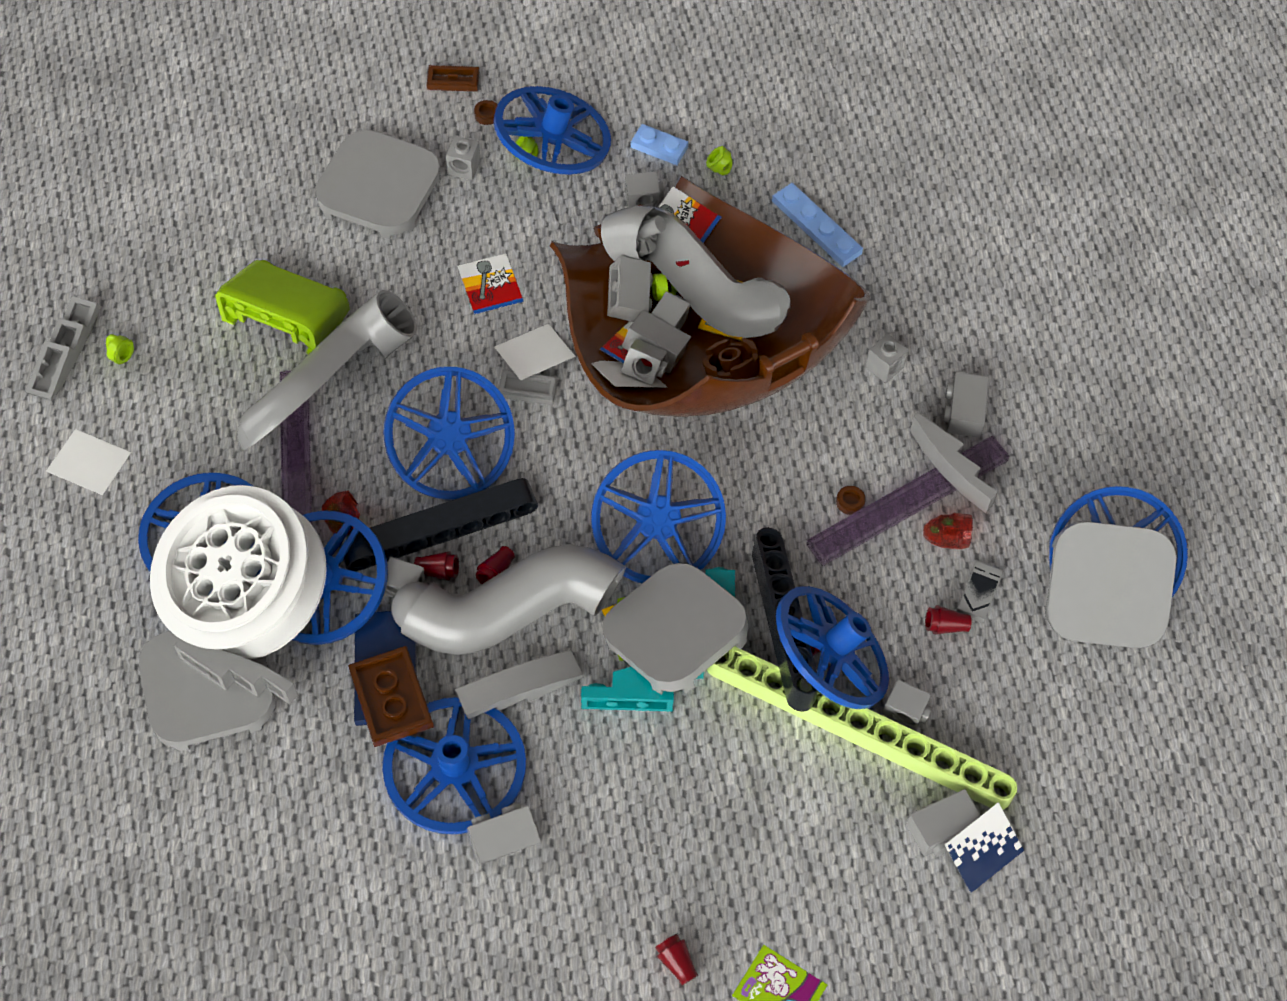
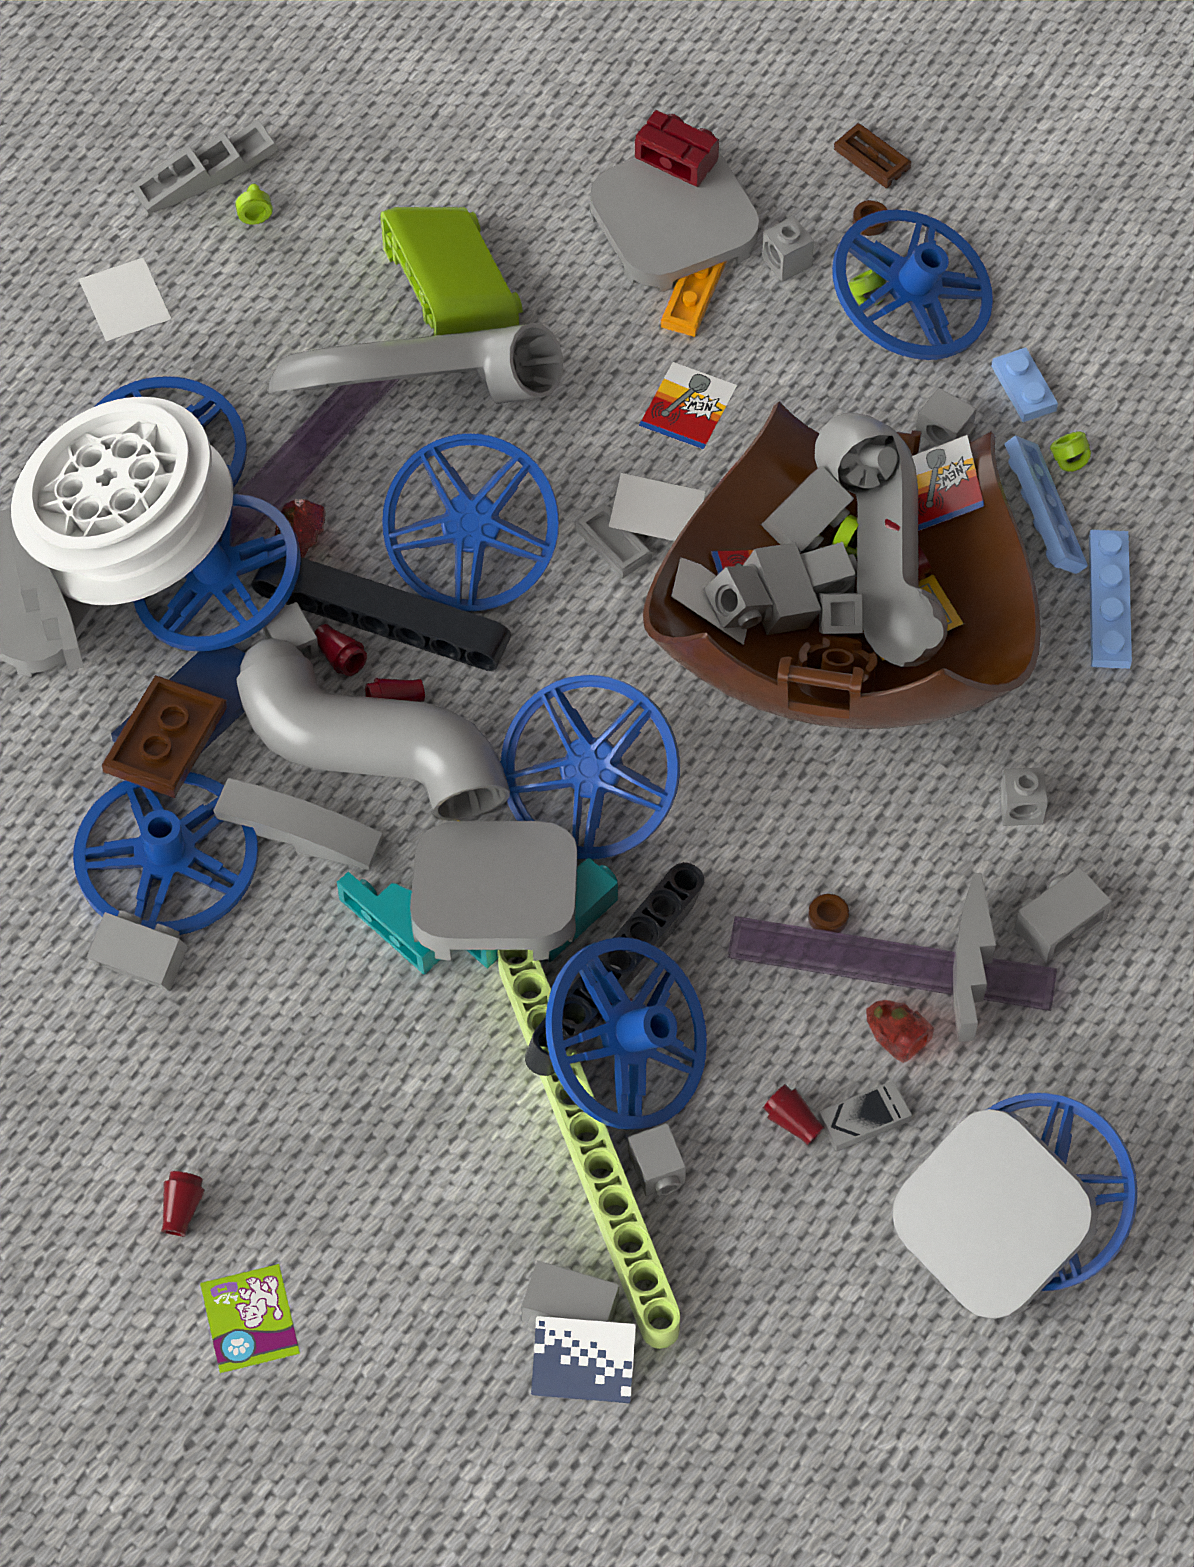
camera: 45 degrees right, 0 degrees up
(350, 142) = (677, 147): none -> dark red brick
(434, 225) = (691, 300): none -> light orange tile
(703, 329) = (840, 613): none -> light grey brick
(746, 203) = (1049, 513): none -> light blue plate

